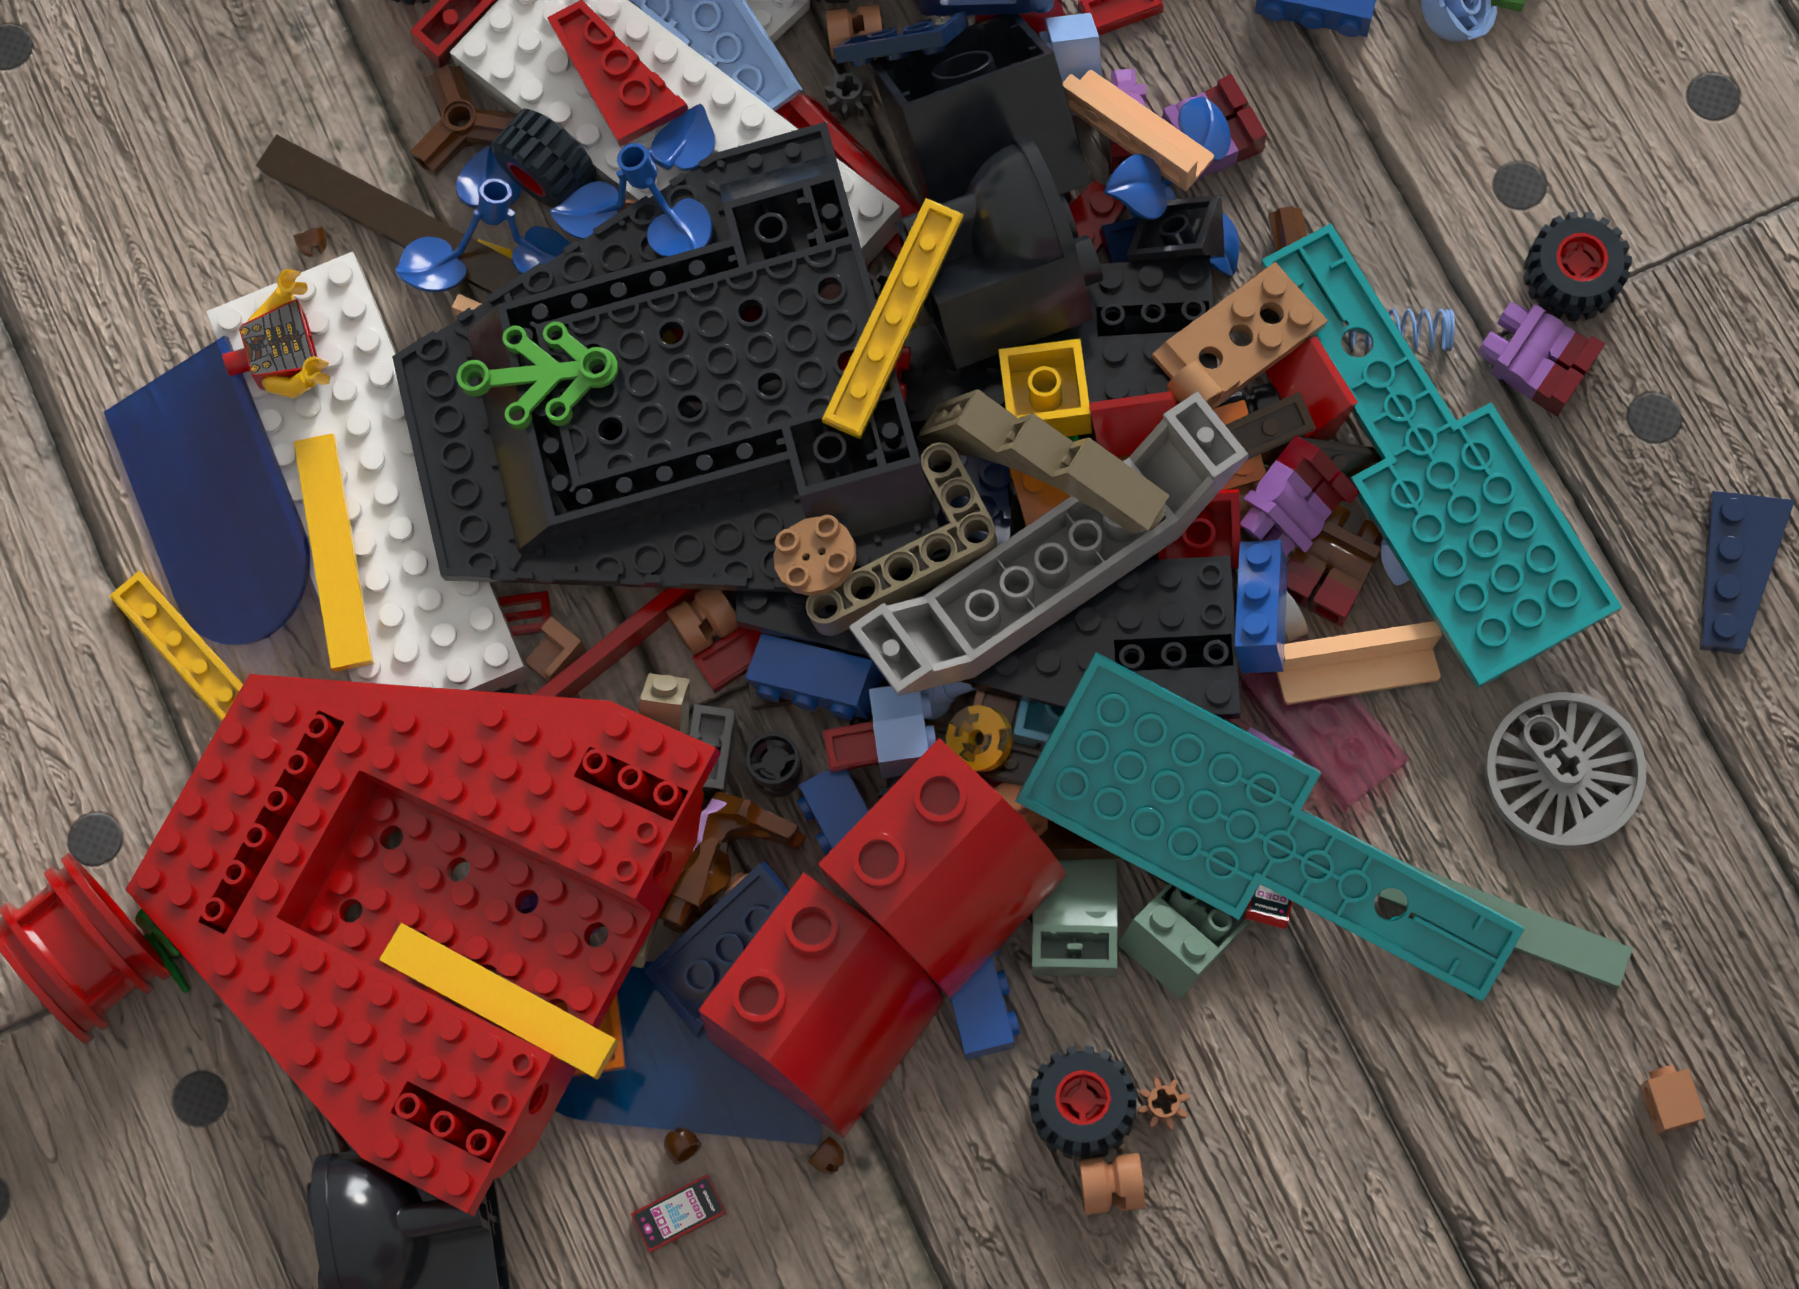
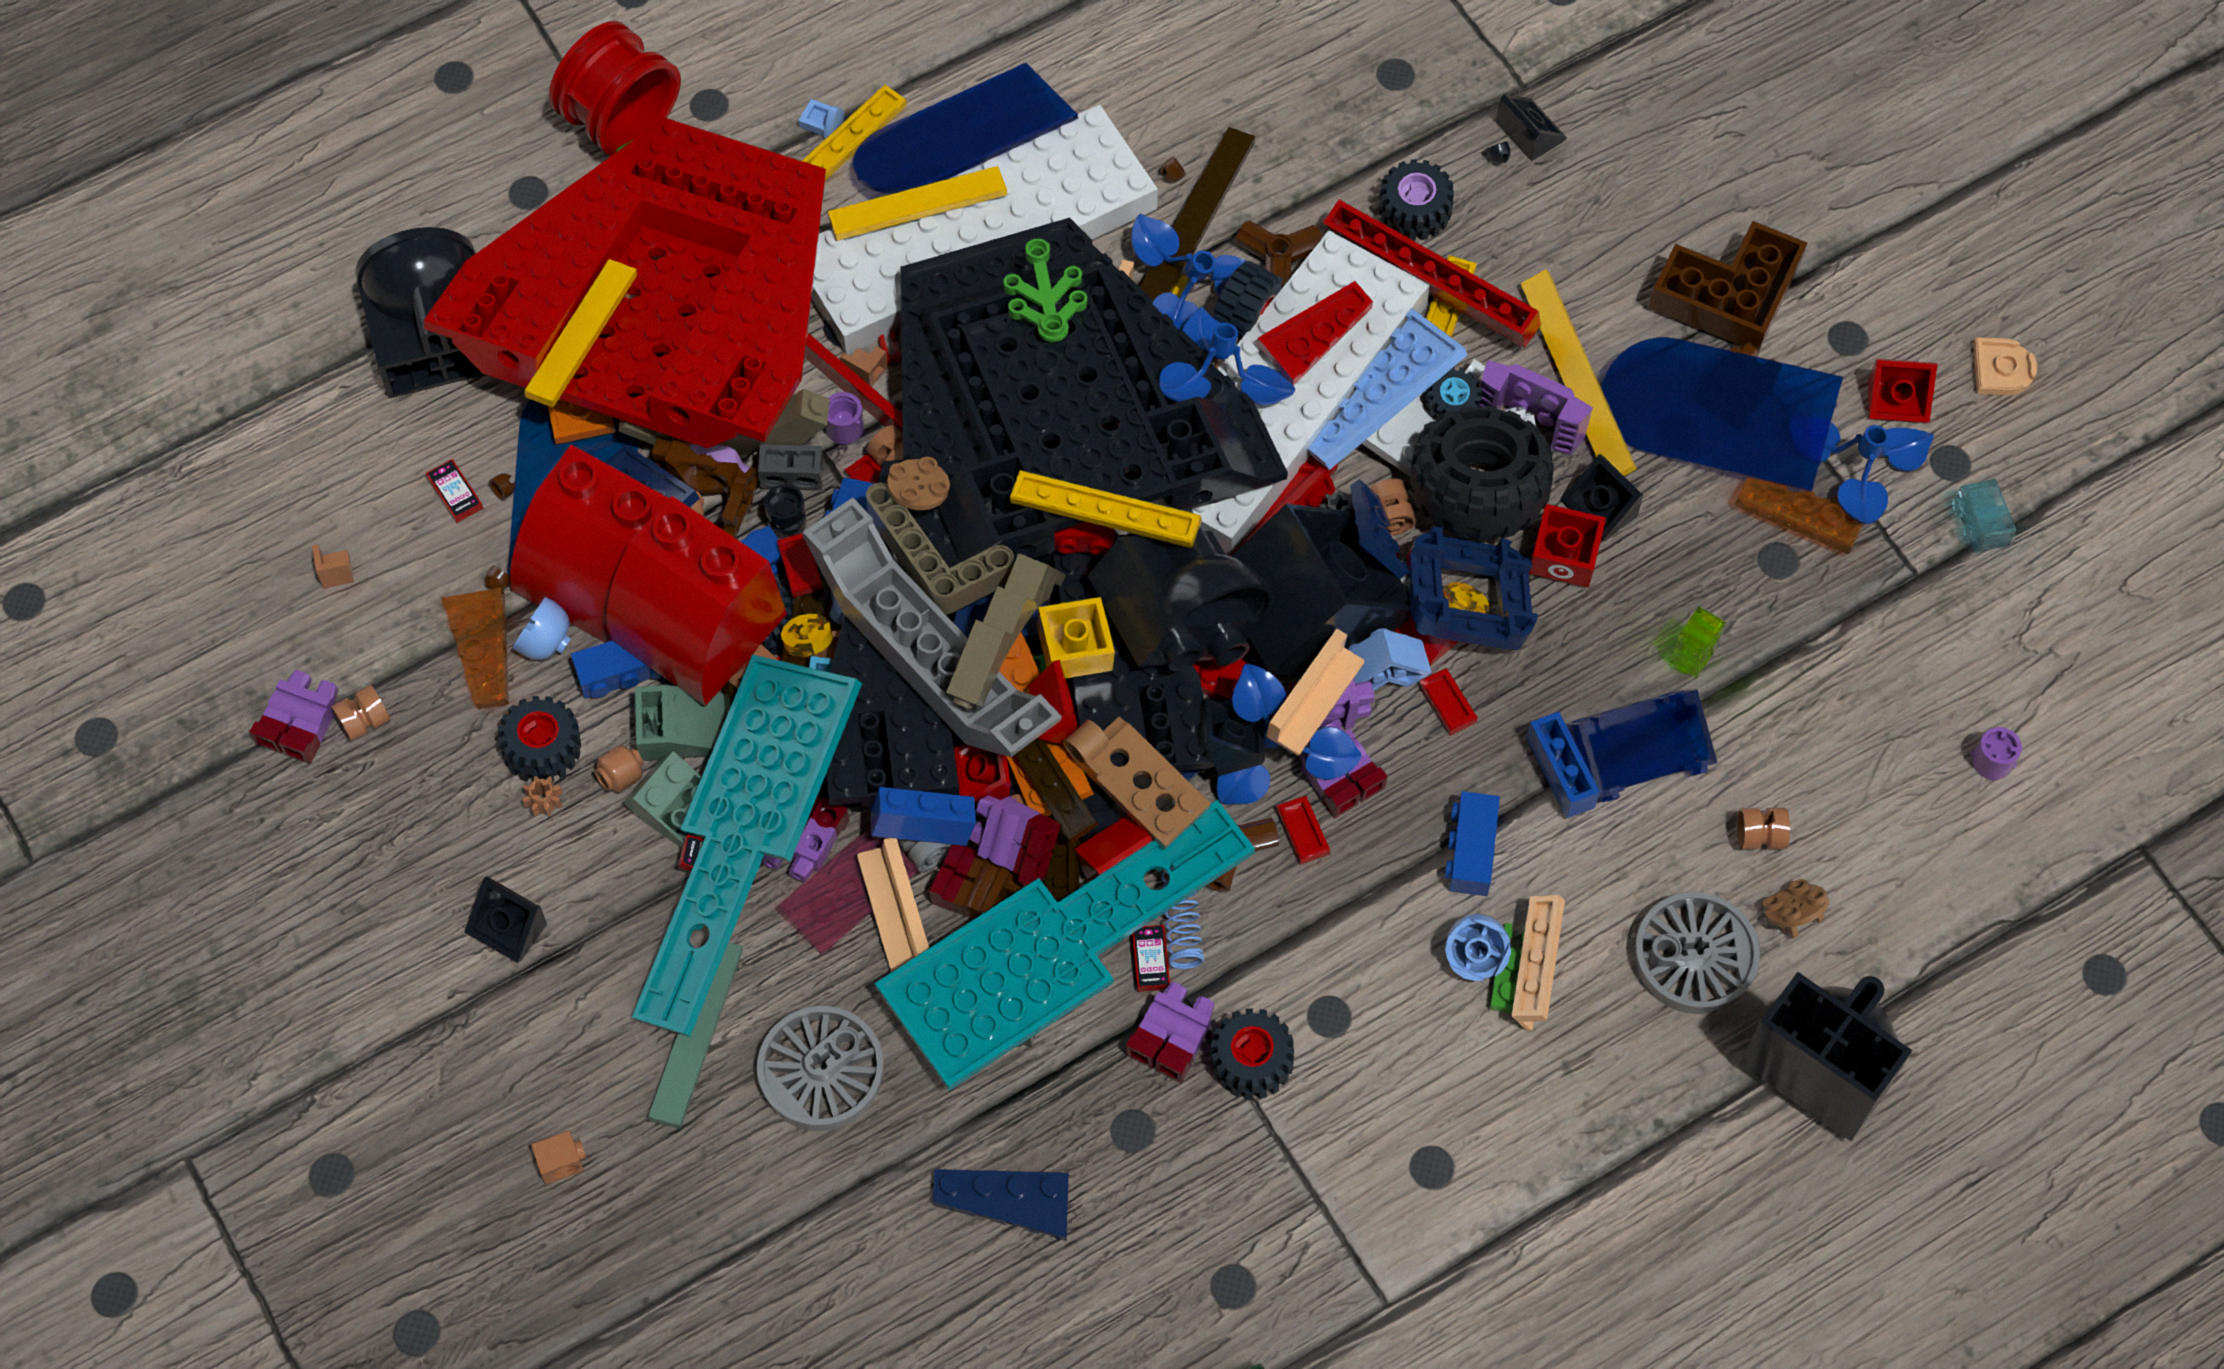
camera: 75 degrees right, 10 degrees down
(149, 684) = (821, 118): none -> light blue tile
(279, 344) = (1070, 145): torso -> none
(630, 675) = (844, 418): none -> medium lavender piece
(900, 729) = (796, 573): light blue brick -> none
(918, 1181) = (481, 641): none -> clear orange wing
(921, 1092) = (544, 632): none -> light blue cylinder
(1112, 1184) = (481, 764): nougat wheel -> none
(1133, 1000) = (619, 768): none -> nougat head
(1278, 186) = (1303, 830): none -> red tile
(1342, 1160) = (505, 920): none -> black slope
(1451, 372) = (1151, 958): none -> tile

